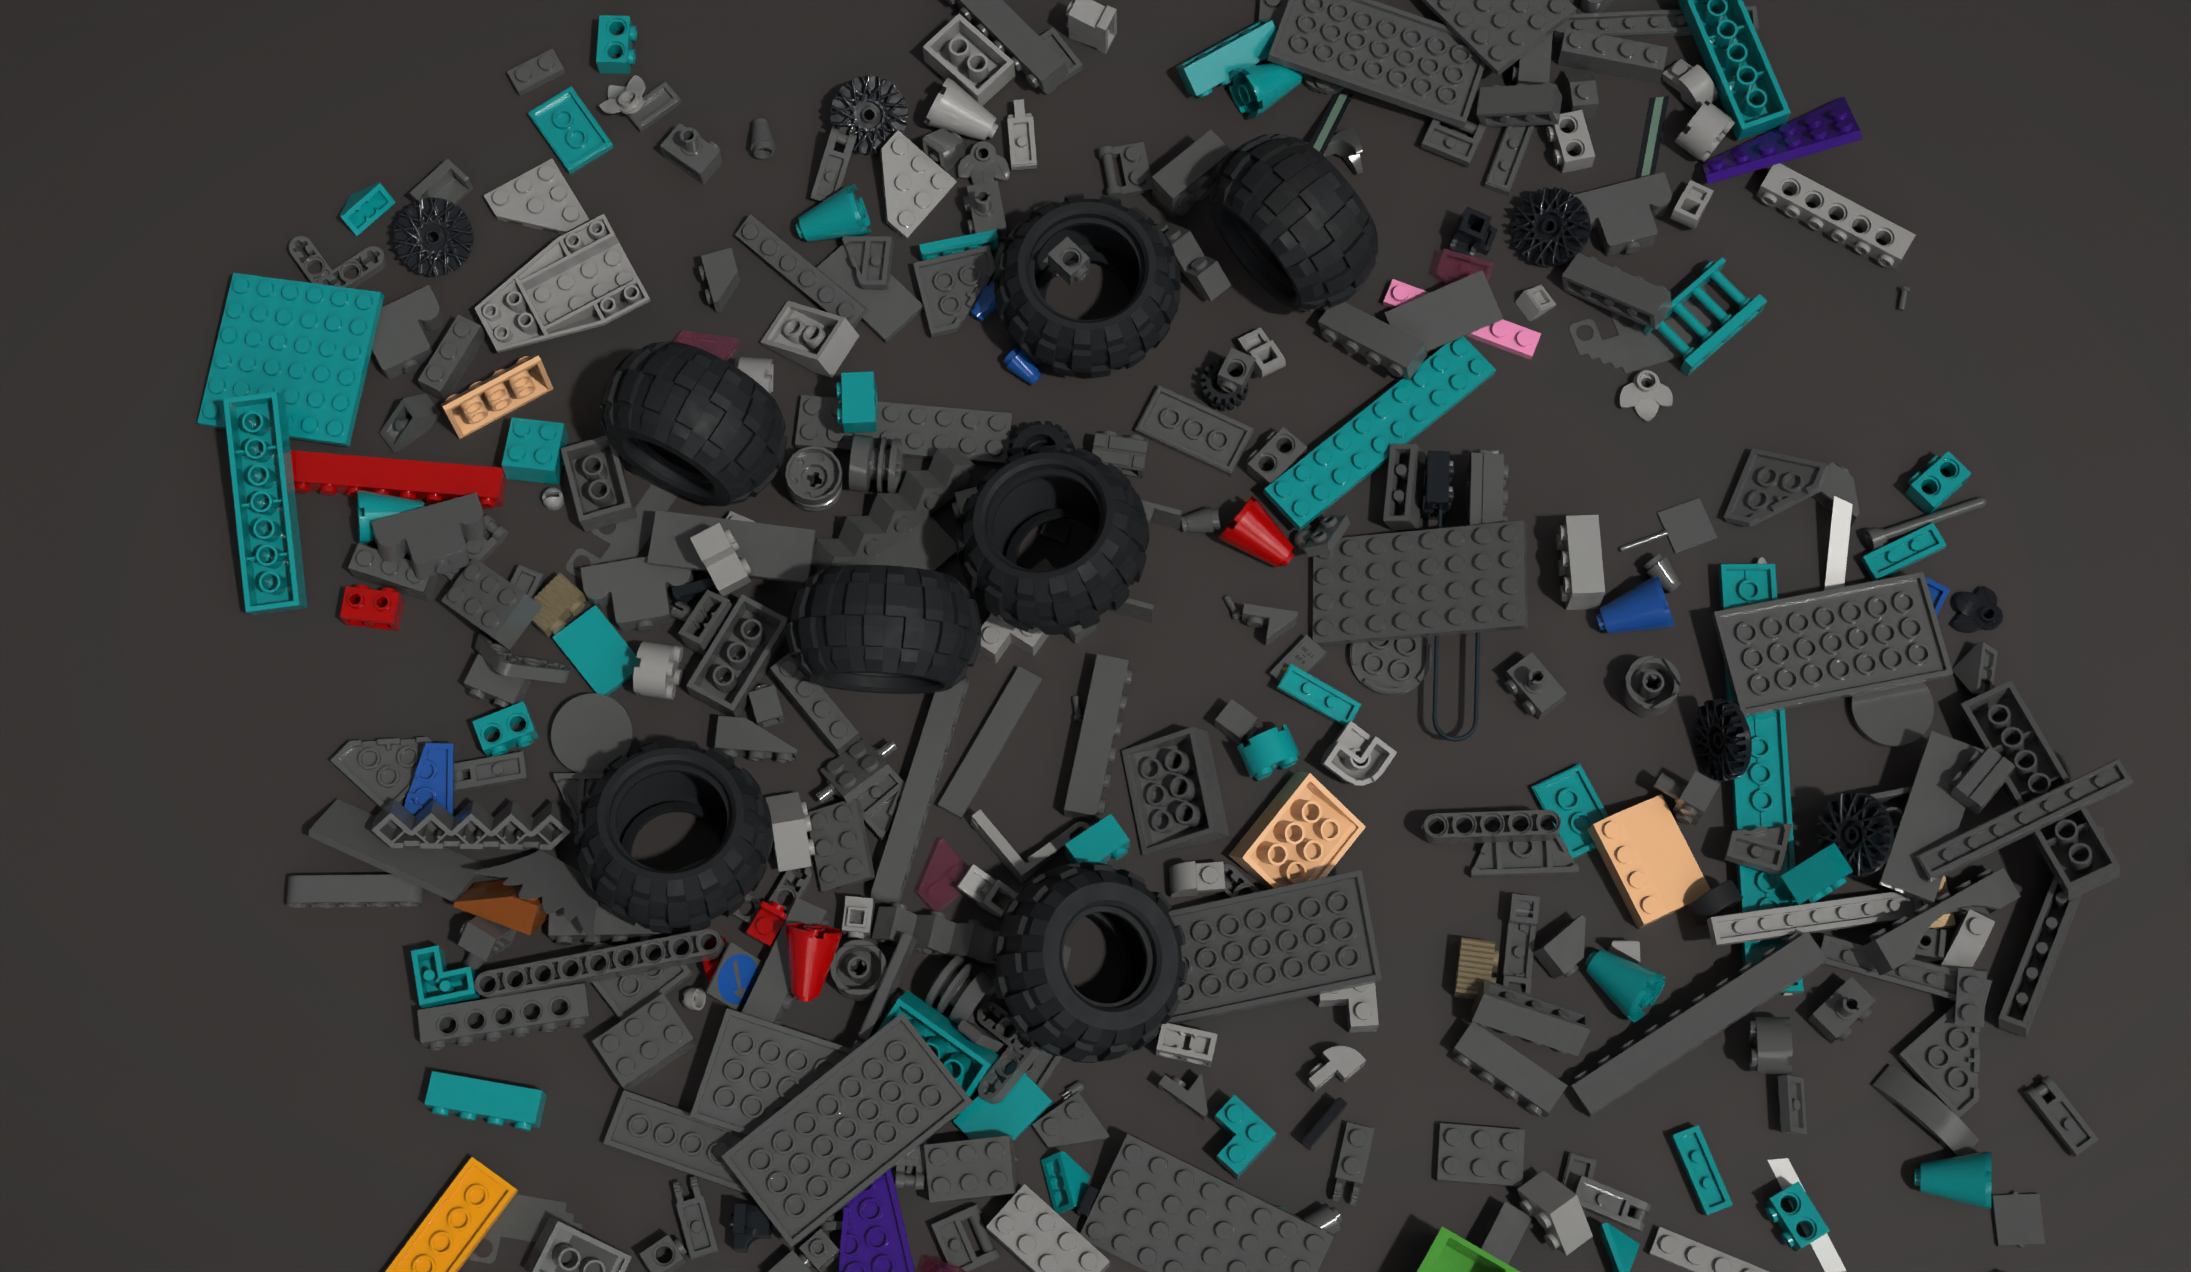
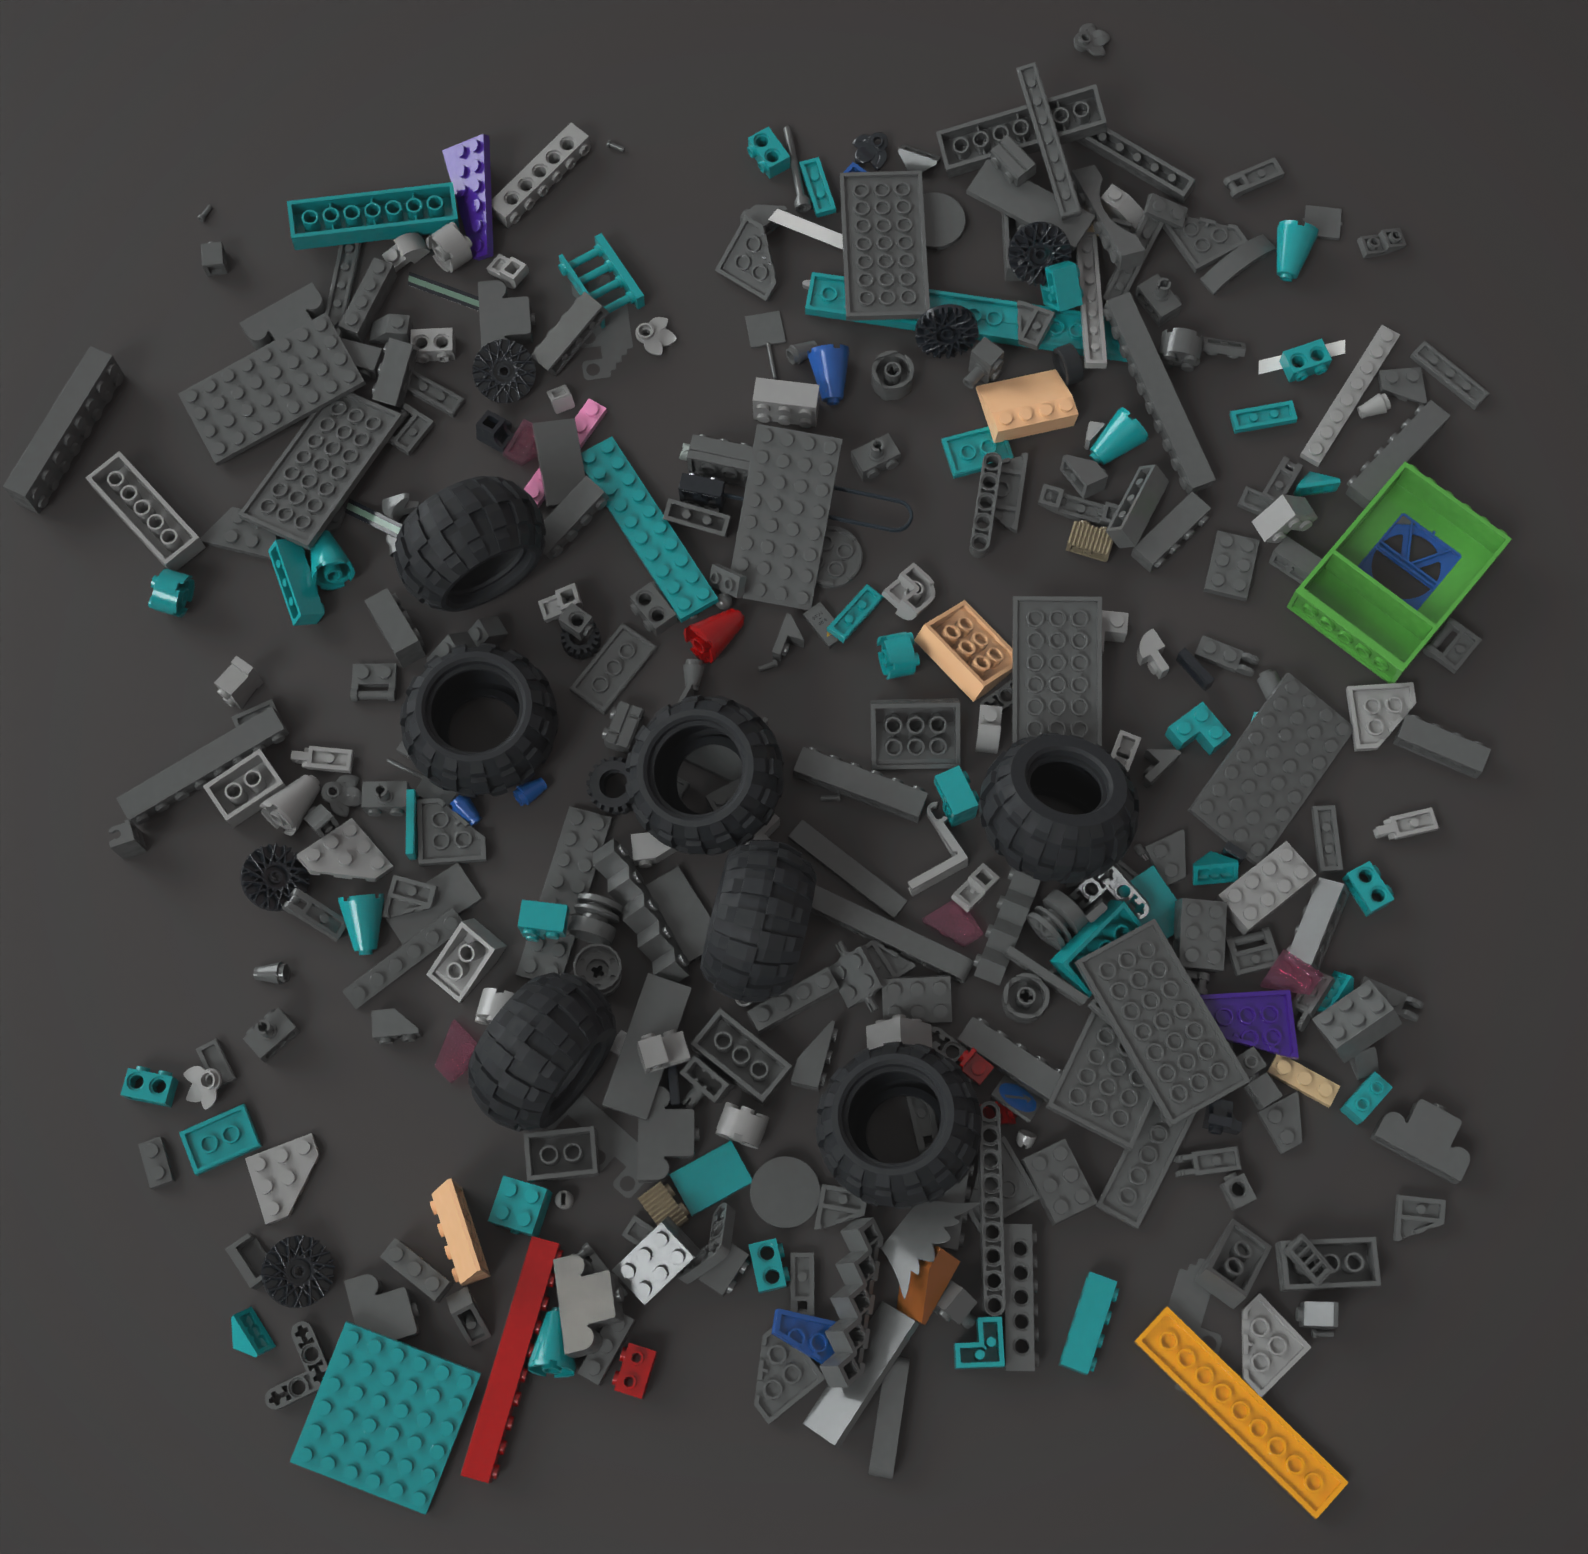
camera: 80 degrees left, 0 degrees up
(265, 503) = (524, 1452): teal brick -> none
(564, 289) = (377, 1160): light grey wedge -> none
(766, 706) = (786, 1042): dark grey brick -> none
(810, 957) = (1013, 1030): red cone -> none
(858, 917) = (979, 995): light grey window -> none
(1067, 251) = (470, 725): dark grey brick -> none
(1237, 723) = (866, 677): dark grey brick -> none

